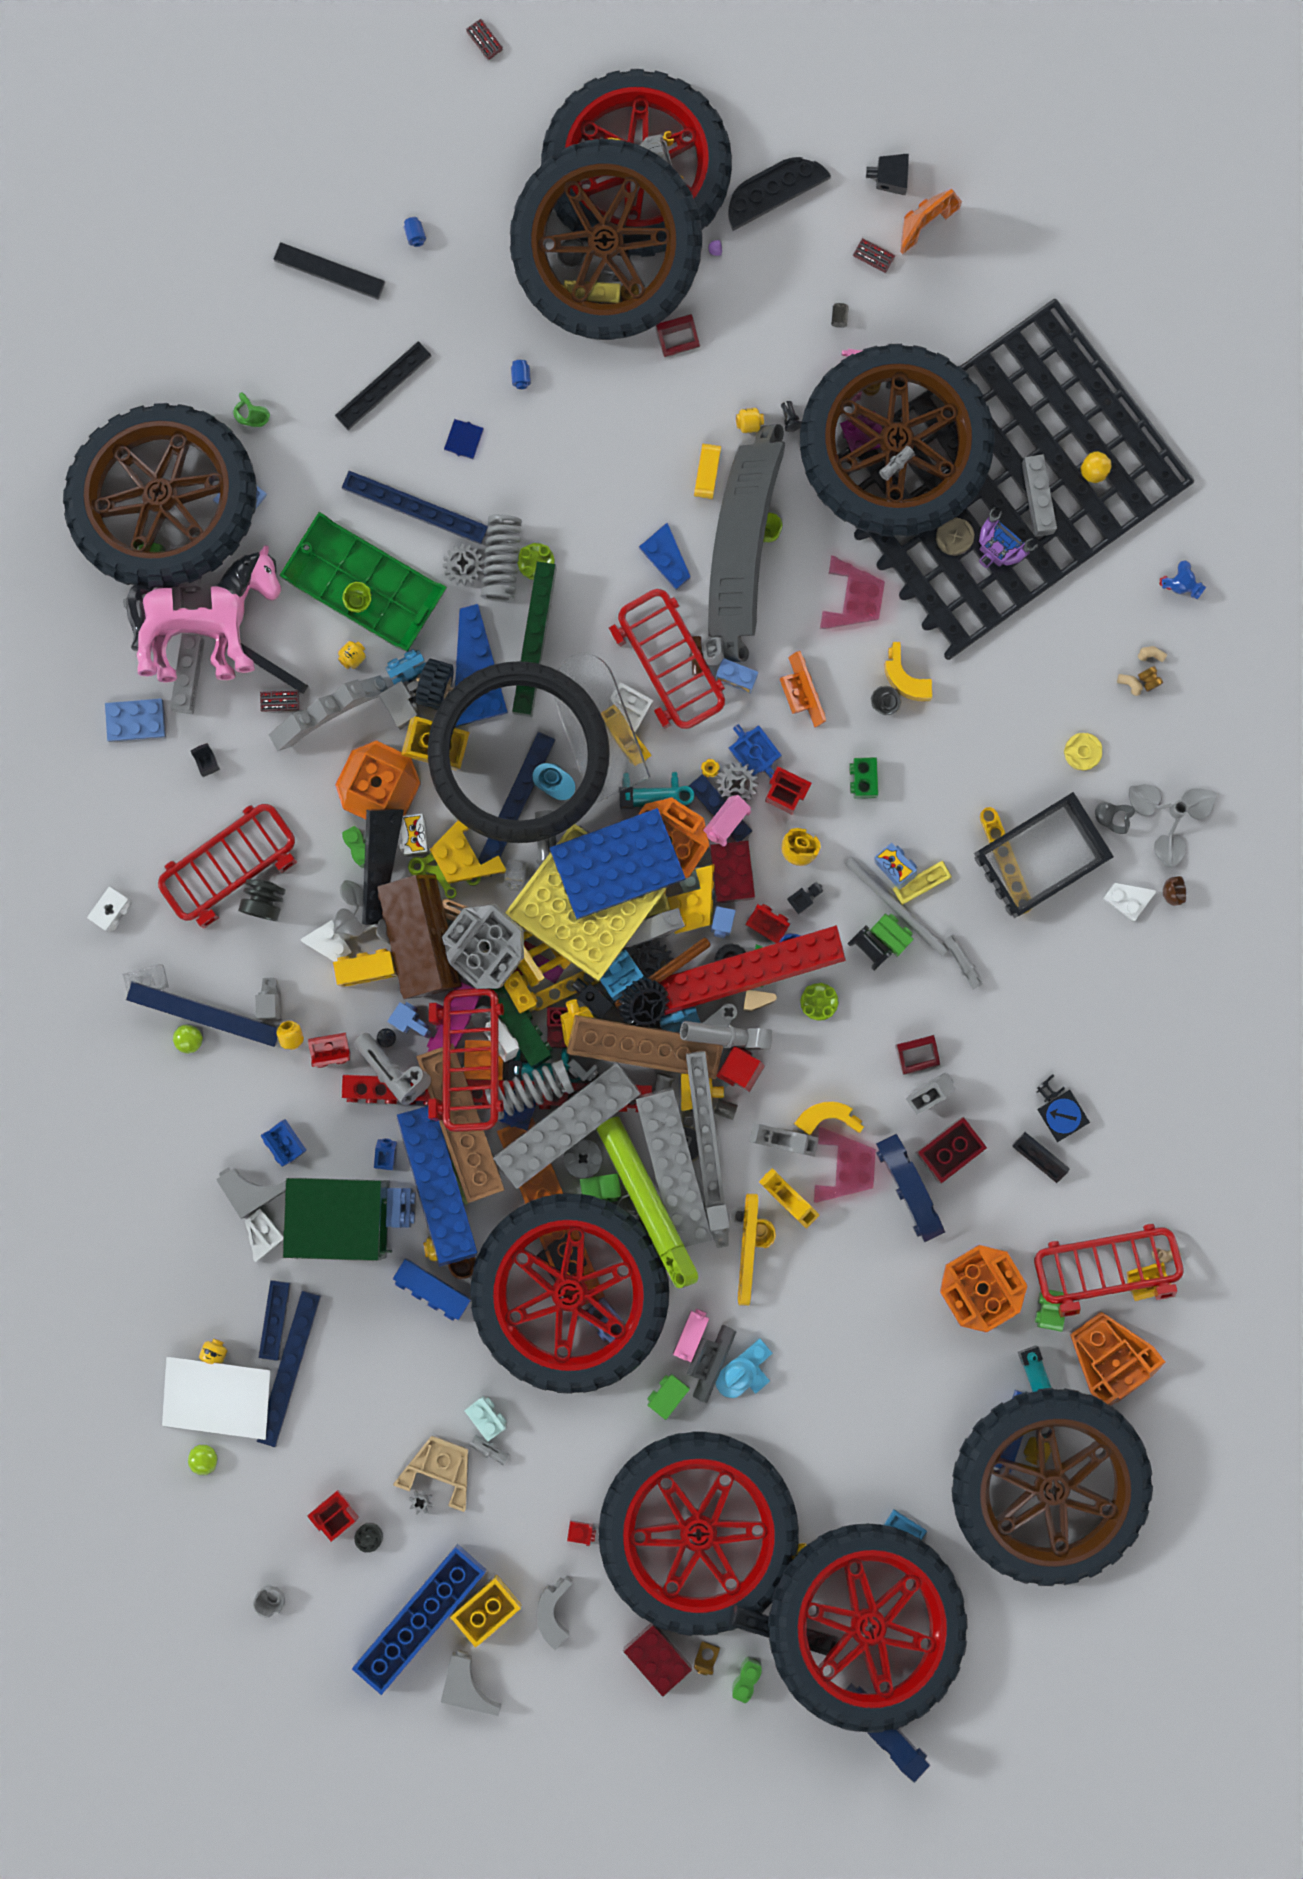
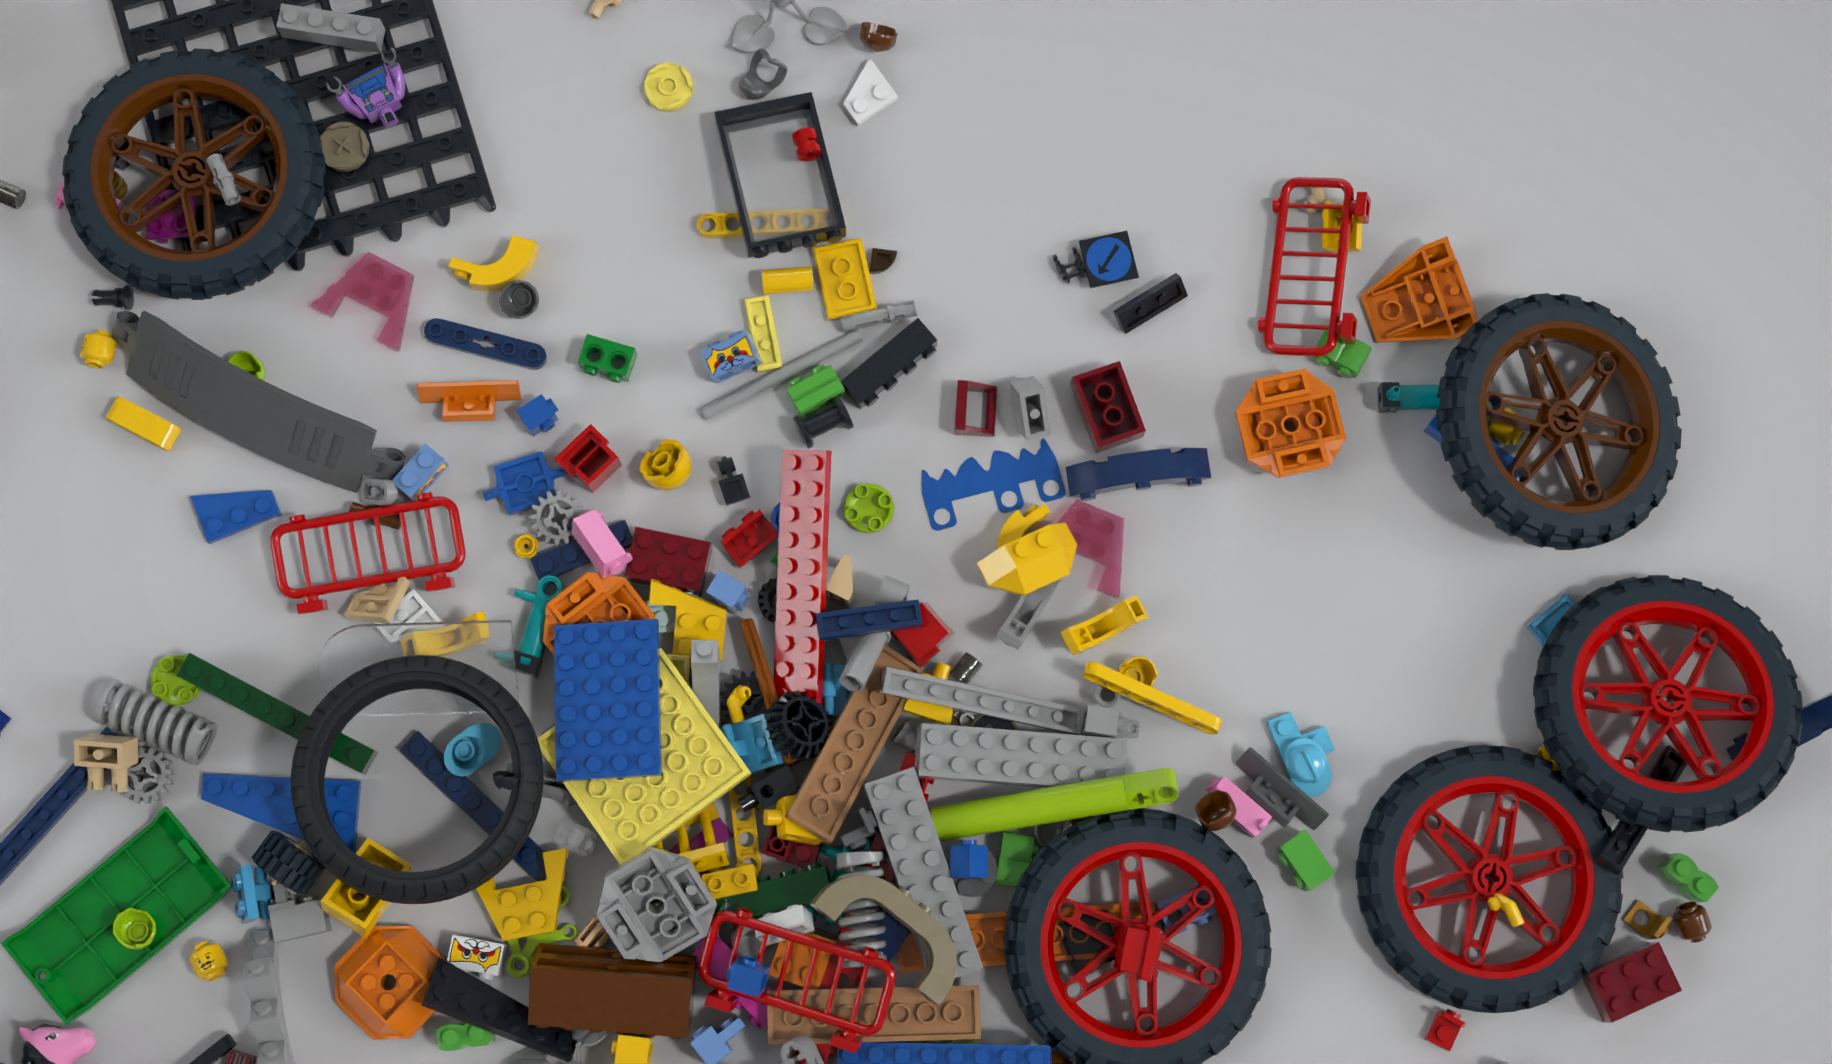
camera: 80 degrees left, 5 degrees down
(456, 1026) = (748, 976): none -> blue brick
(469, 535) = (108, 752): none -> tan brick
(509, 1158) = (942, 961): none -> dark tan arch
(536, 812) = (505, 779): none -> black piece
(561, 1295) = (1139, 951): none -> red plate
(587, 1154) = (969, 860): none -> blue brick
(634, 680) = (378, 603): none -> tan wing
(646, 953) = (736, 701): none -> yellow arm
(680, 1551) = (1507, 905): none -> yellow arm
(681, 1320) = (1216, 810): none -> reddish brown hair
(715, 1691) = (1692, 922): none -> reddish brown head
(734, 1028) = (868, 620): none -> dark blue plate
(807, 744) = (539, 415): none -> blue brick
(817, 1130) = (1030, 560): none -> yellow wedge
(846, 706) = (509, 349): none -> dark blue piece
(876, 1090) = (1003, 476): none -> blue piece
(930, 981) = (889, 363): none -> black brick
(966, 887) = (787, 280): none -> yellow pin
(983, 928) = (844, 278): none -> yellow tile
(1006, 950) = (881, 260): none -> dark brown tile
(1072, 866) = (806, 144): none -> red wheel

